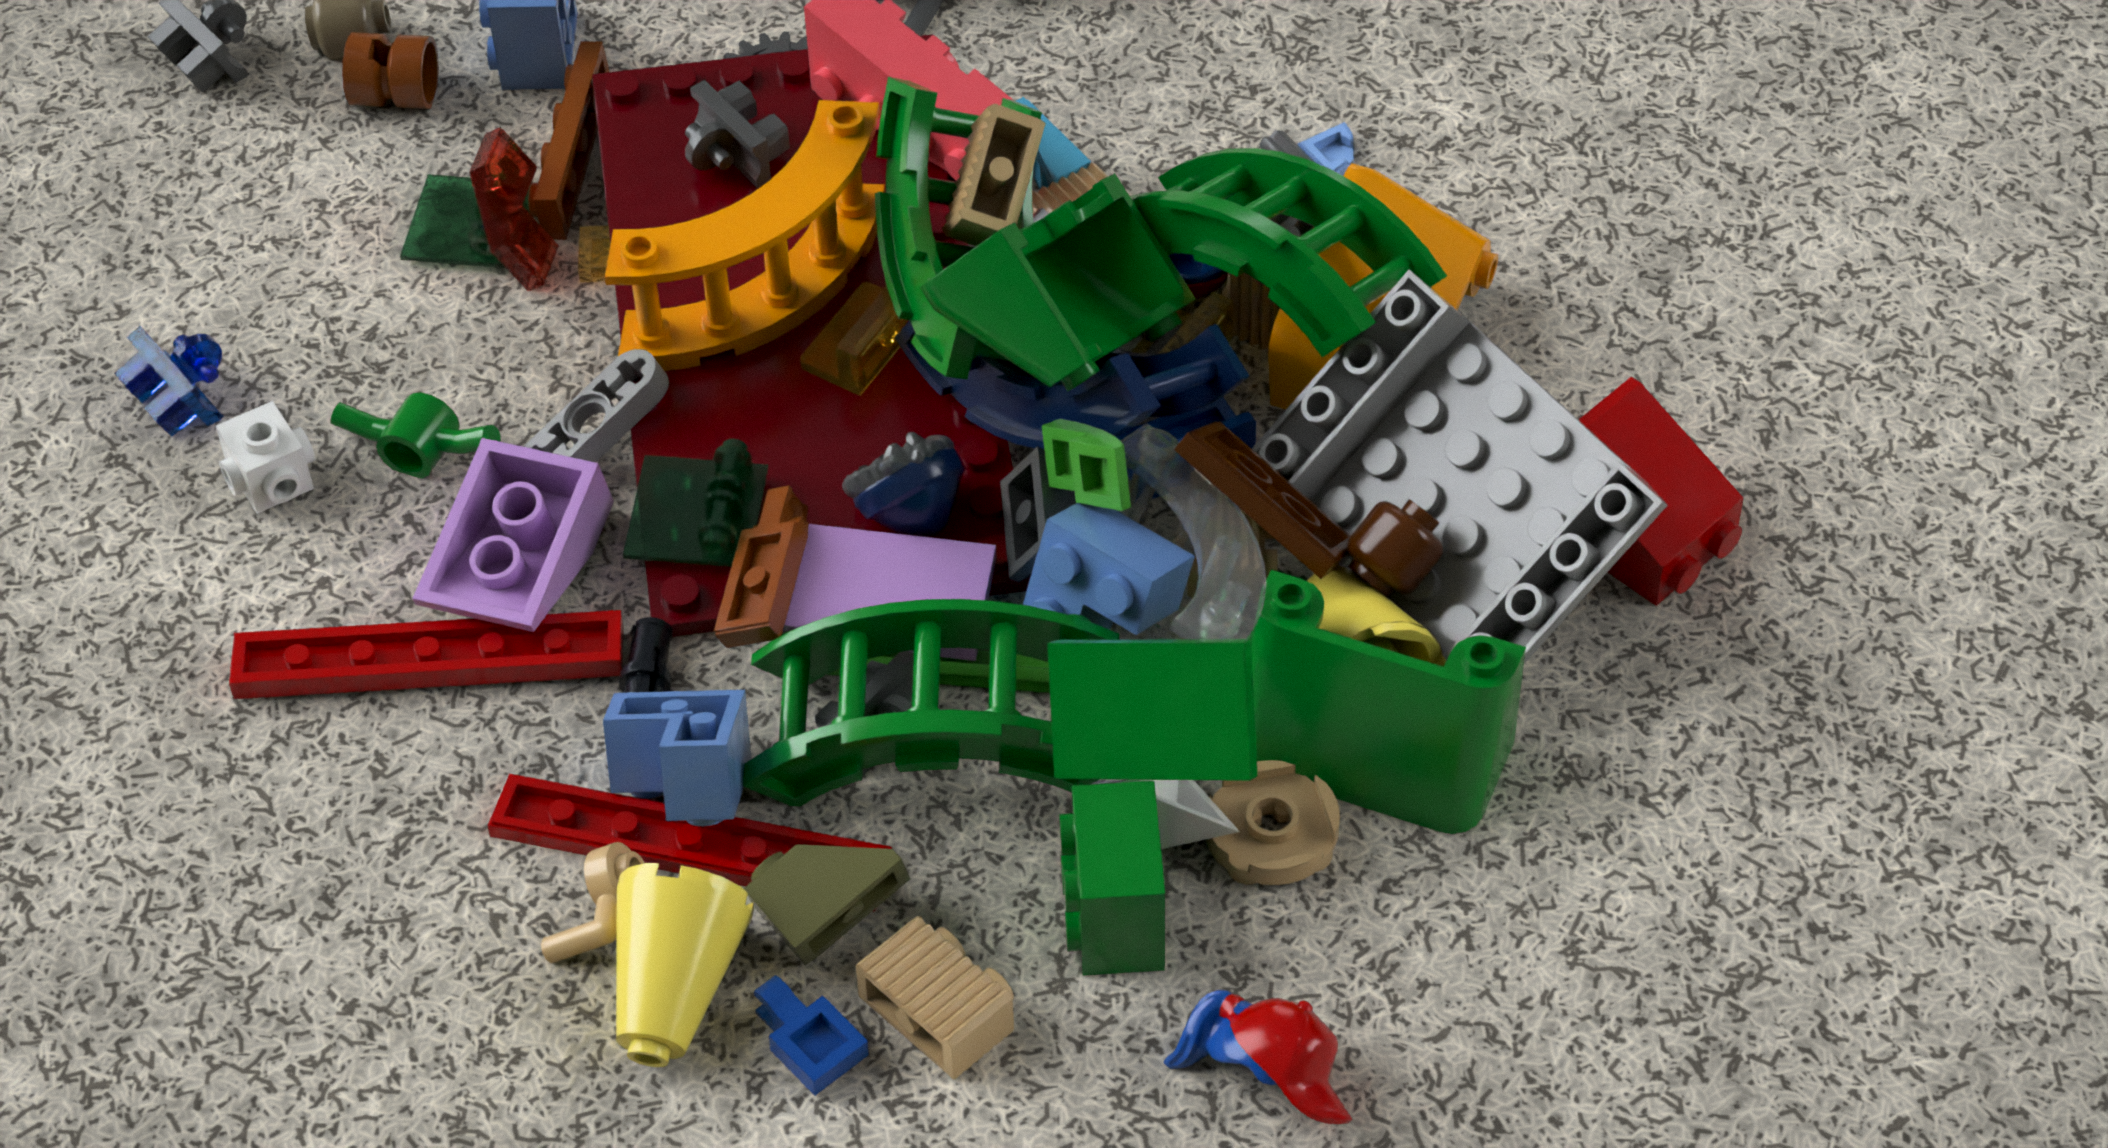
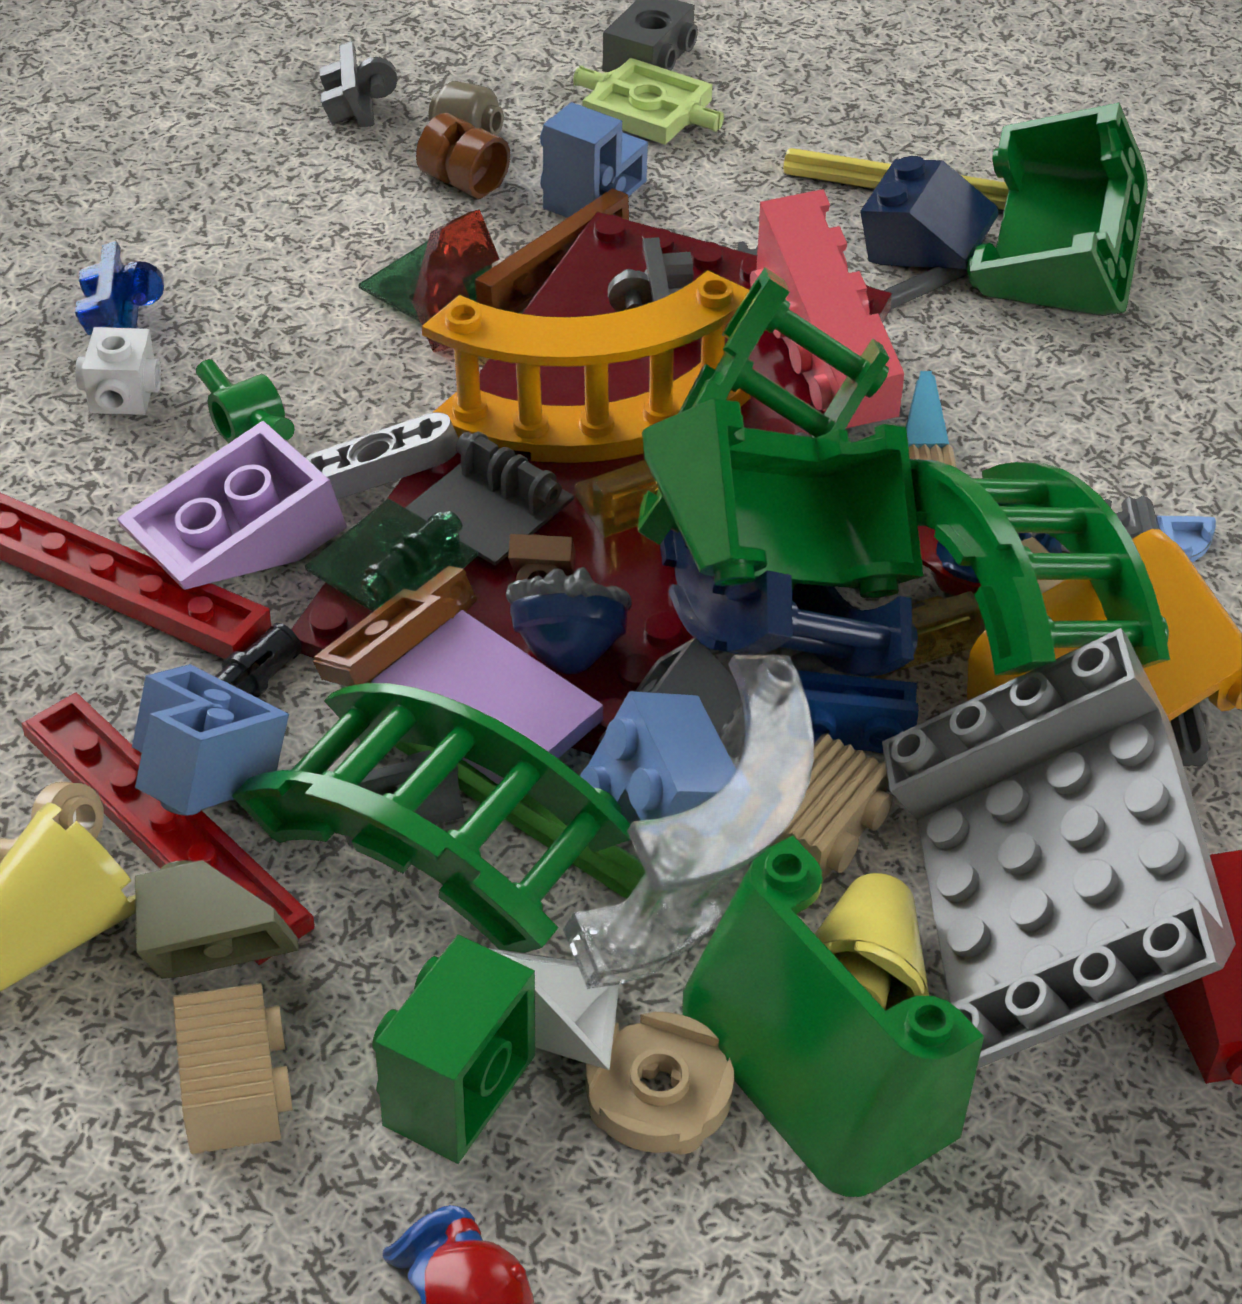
camera: 30 degrees right, 5 degrees down
(740, 402) = (493, 496): none -> dark grey hinge
(809, 1040) = (98, 1045): blue plate -> none
(837, 441) = (541, 554): none -> medium nougat tile
(993, 174) = (808, 383): tan brick -> none
(1086, 462) = (705, 664): bright green slope -> none
(1153, 709) = (572, 902): green tile -> none
(1266, 497) = (859, 779): reddish brown tile -> none
(1395, 547) = (953, 885): reddish brown head -> none

